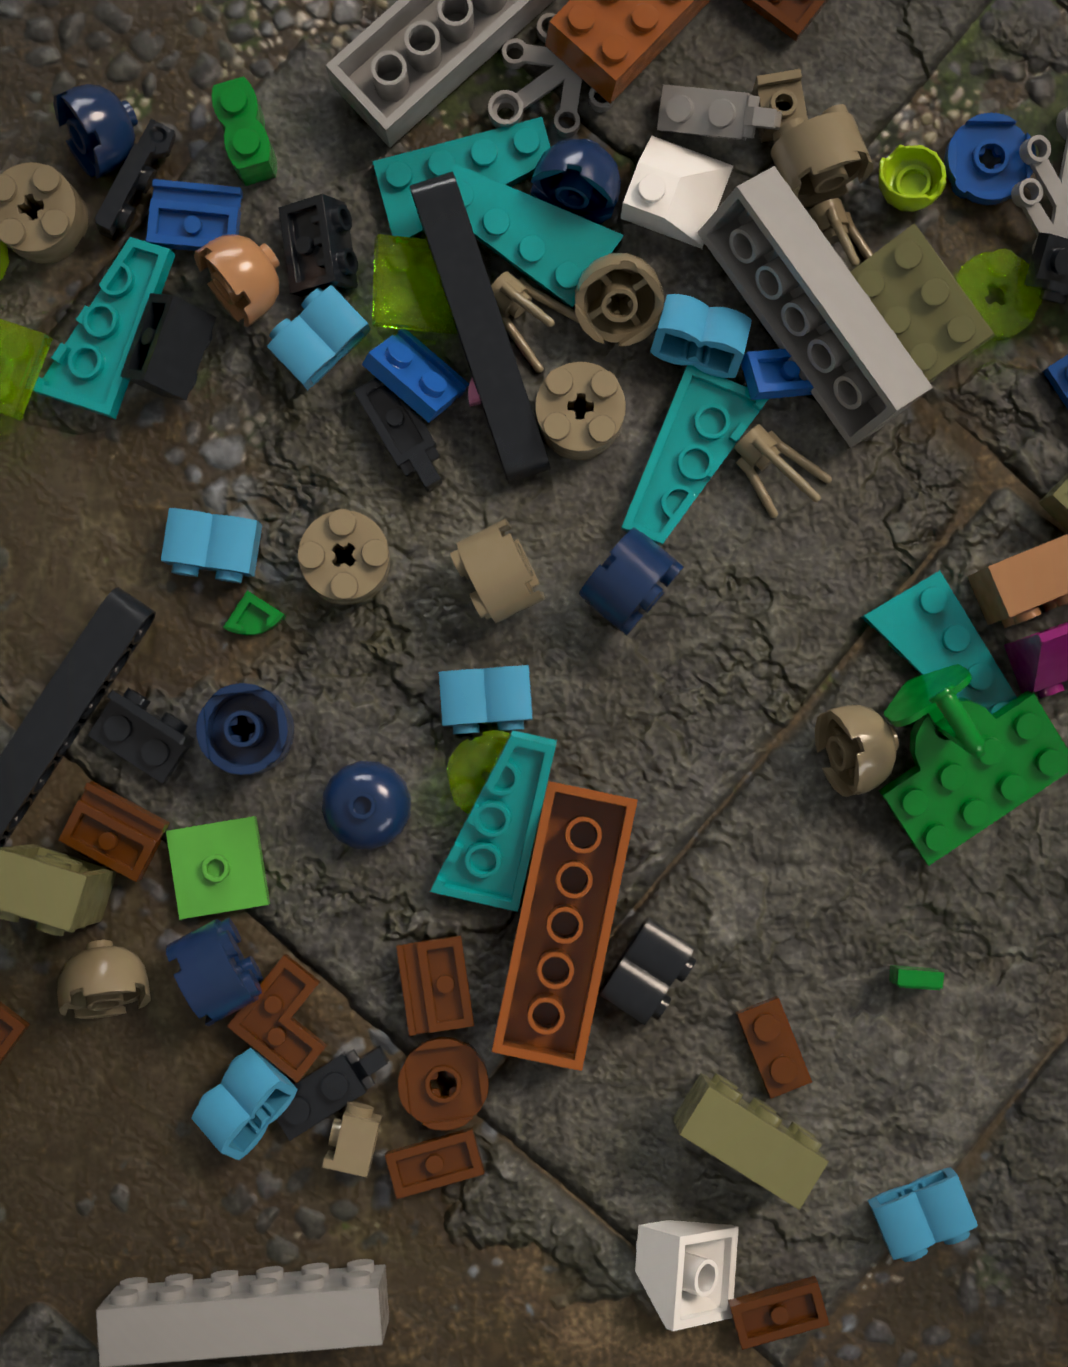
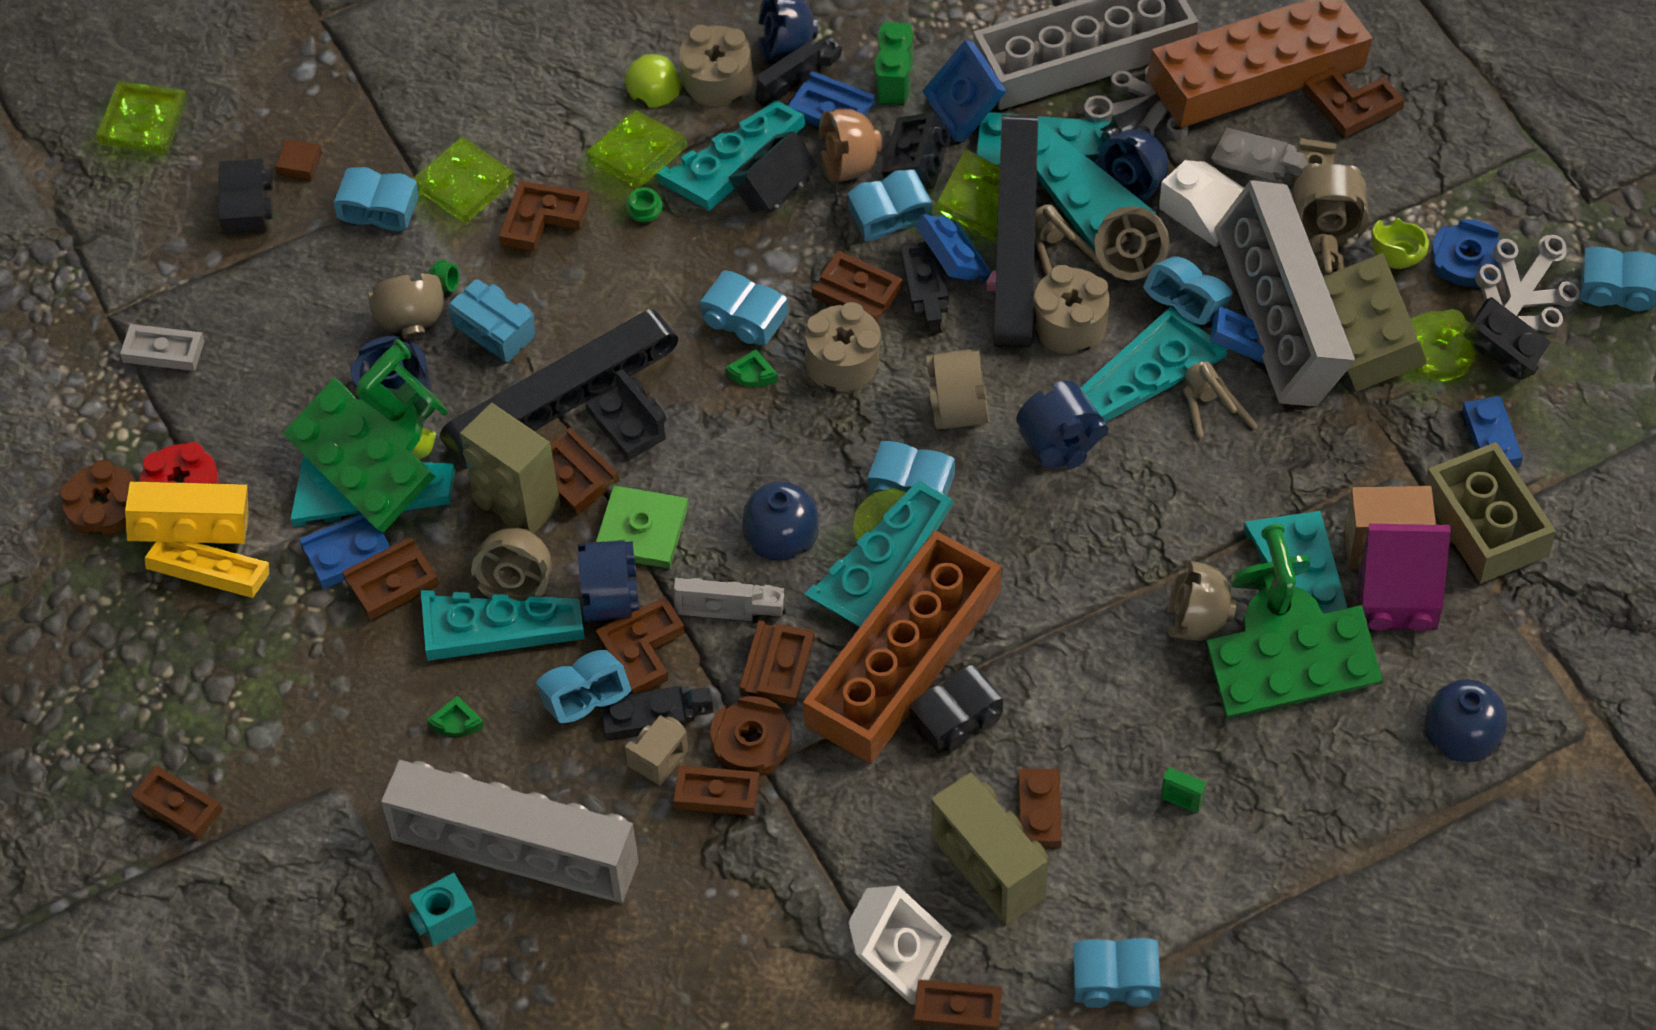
camera: 25 degrees right, 30 degrees down
(37, 439) = (644, 205): none -> green plate
(103, 1056) = (481, 625): none -> teal wing
(123, 1179) = (455, 720): none -> green tile
(226, 711) = (711, 431): dark blue brick -> none
(326, 464) = (858, 282): none -> reddish brown plate
(344, 147) = (964, 91): none -> blue plate
(354, 927) = (726, 599): none -> light grey hinge
(547, 125) = (1128, 118): none -> black piece

